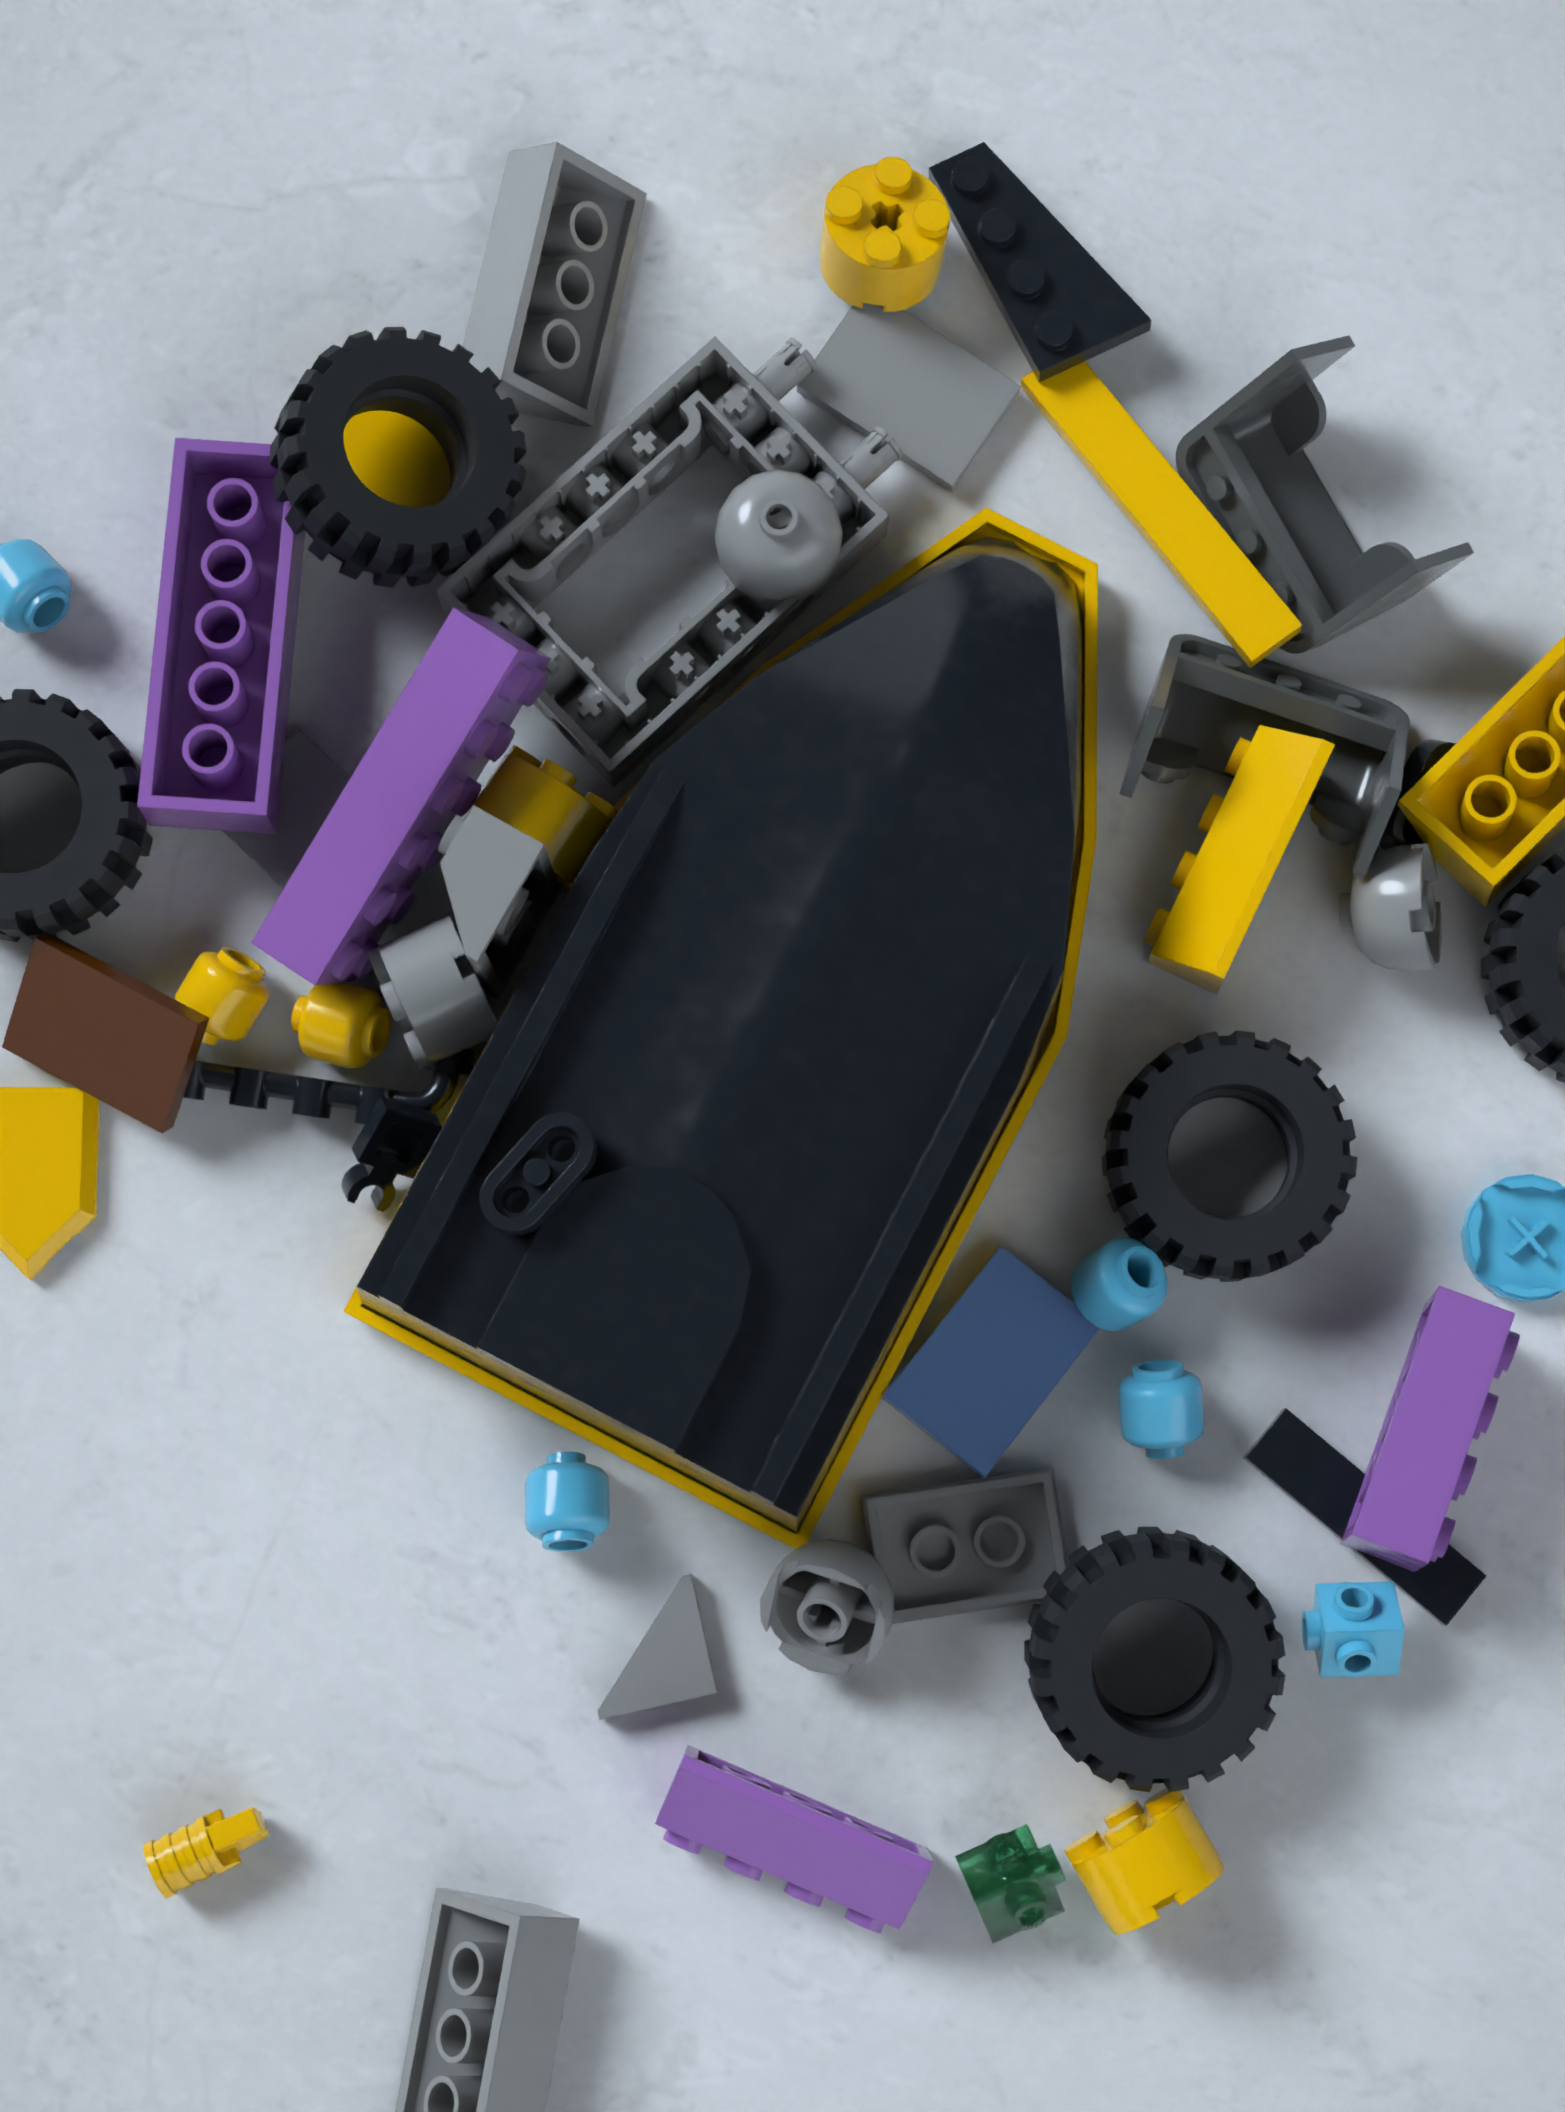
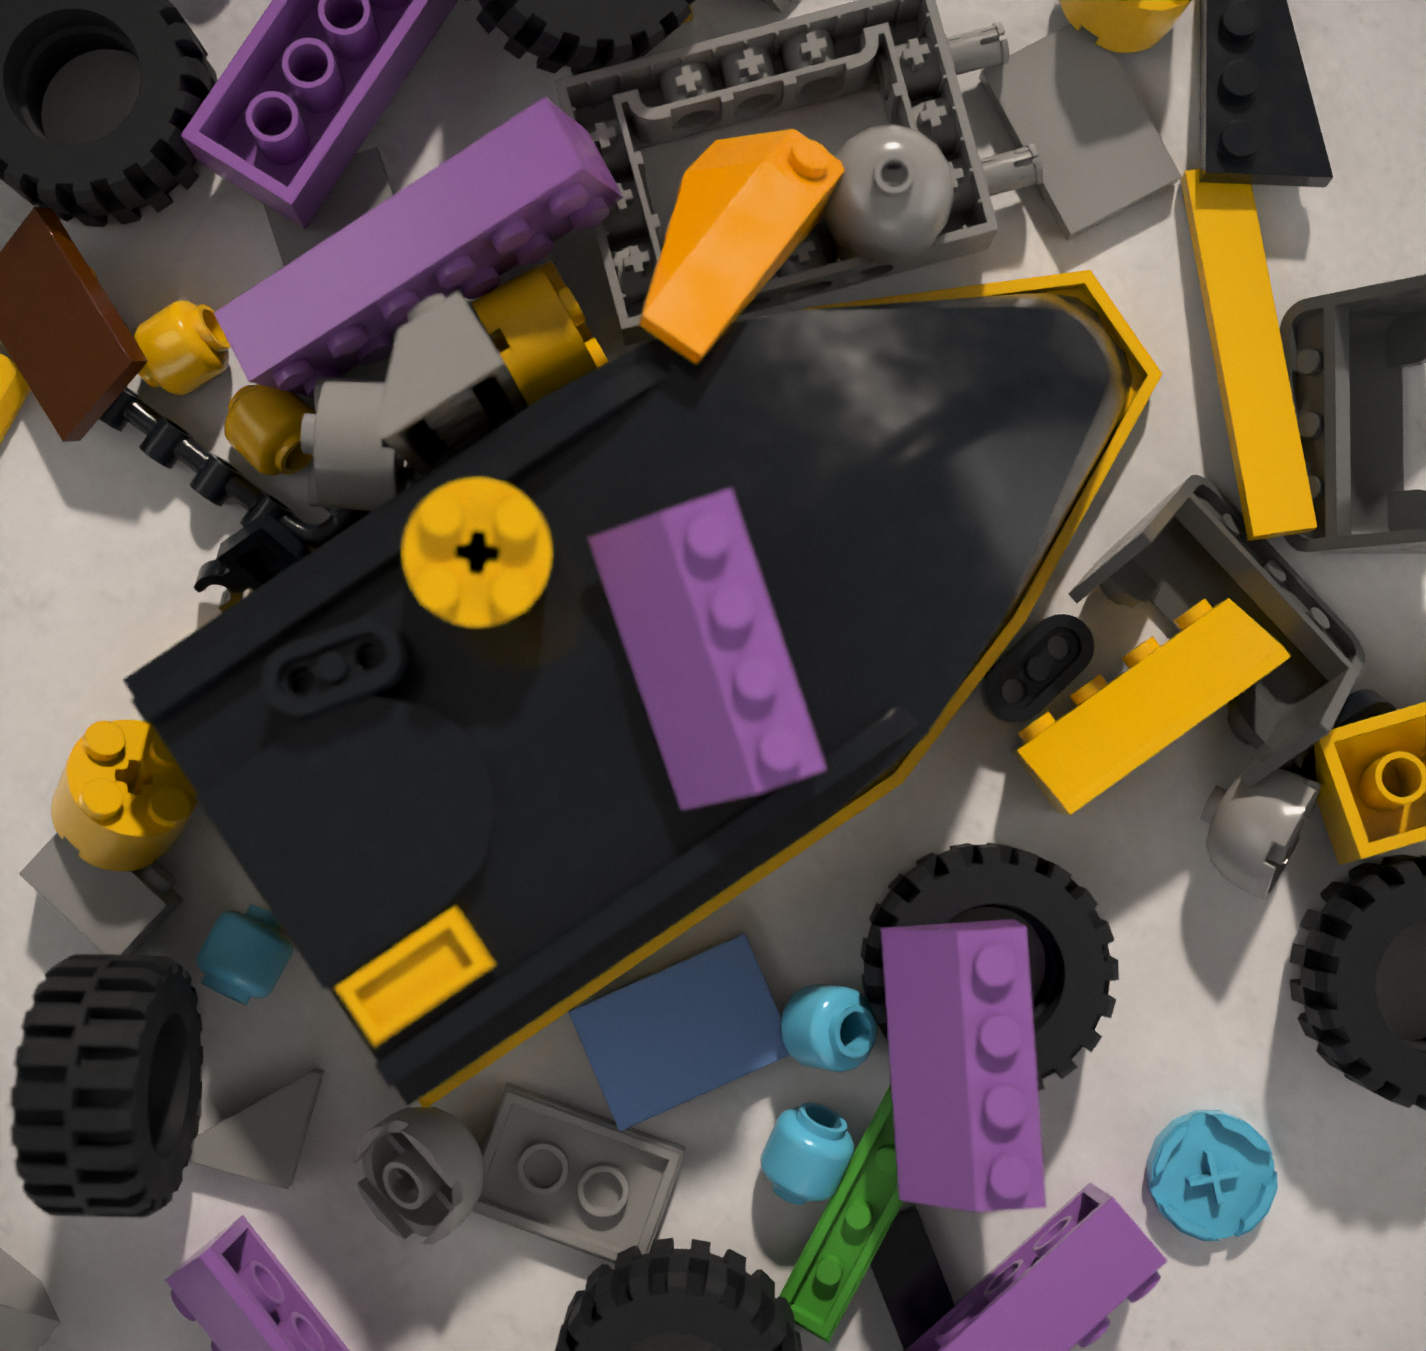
camera: 30 degrees right, 5 degrees up
(390, 1409) = (122, 796): none -> yellow brick
(406, 1508) = (106, 906): none -> light grey brick
(520, 1661) = (107, 1086): none -> black tyre
(622, 971) = (445, 578): none -> yellow brick
(665, 634) = (732, 230): none -> light orange wedge
(744, 1397) = (415, 976): none -> yellow tile
(844, 991) = (707, 652): none -> medium lavender slope
(1129, 878) = (1036, 669): none -> black plate
(1236, 1432) = (847, 1231): none -> bright green tile
(1248, 1239) = (963, 1065): none -> medium lavender slope

